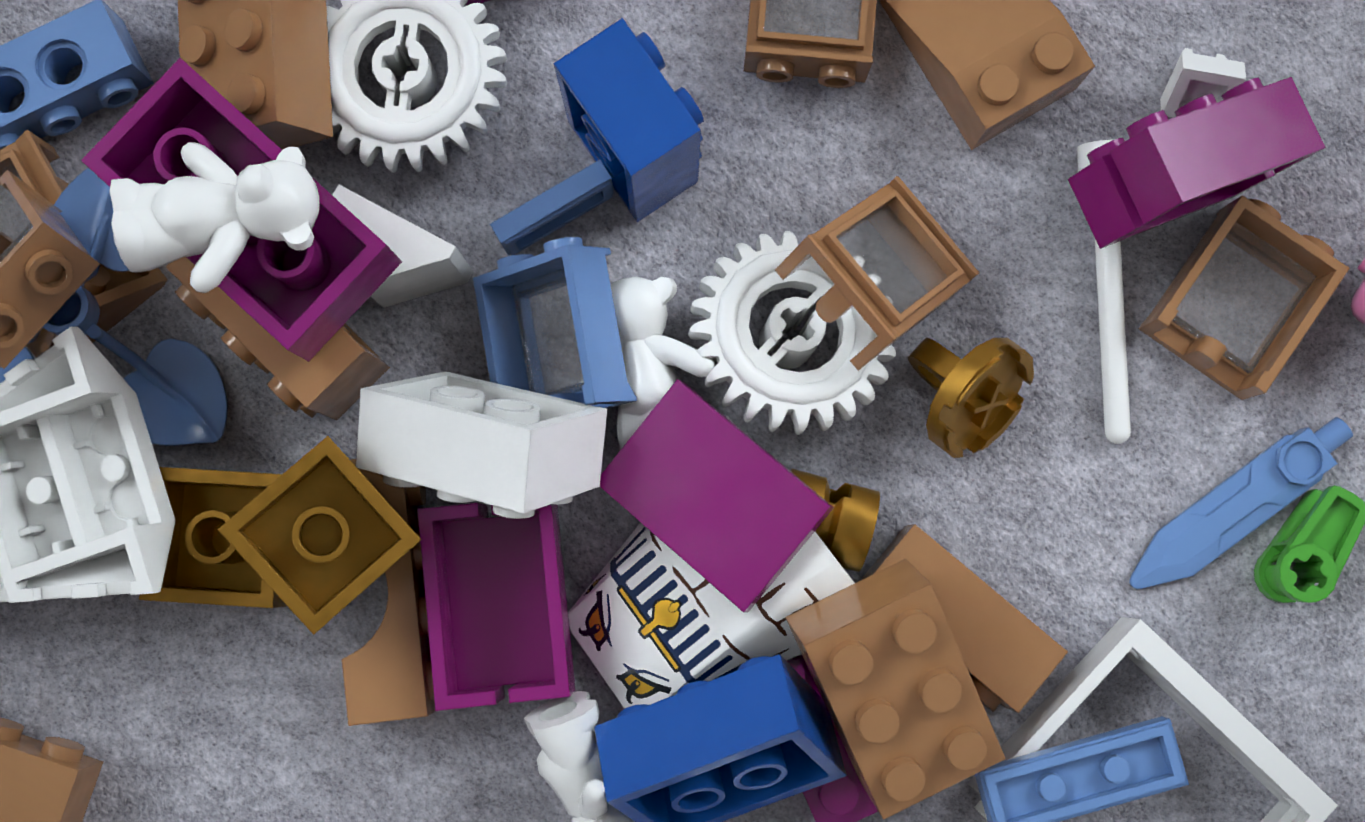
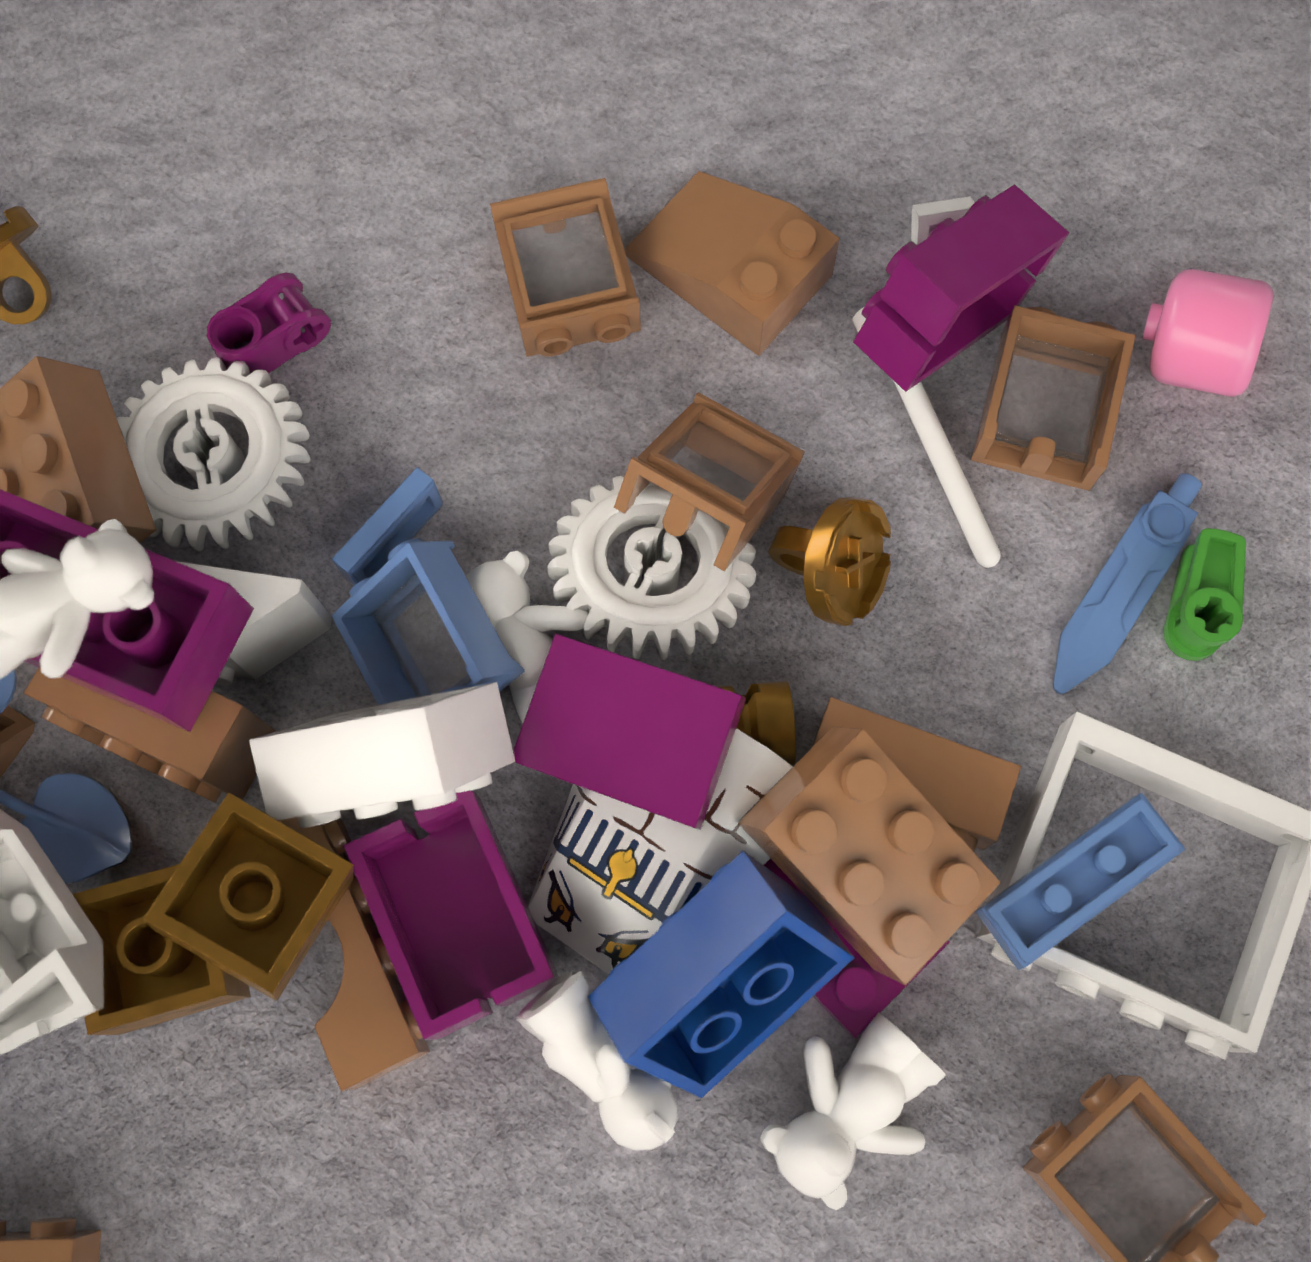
camera: 15 degrees left, 10 degrees down
(632, 117) = (432, 414): blue brick -> none

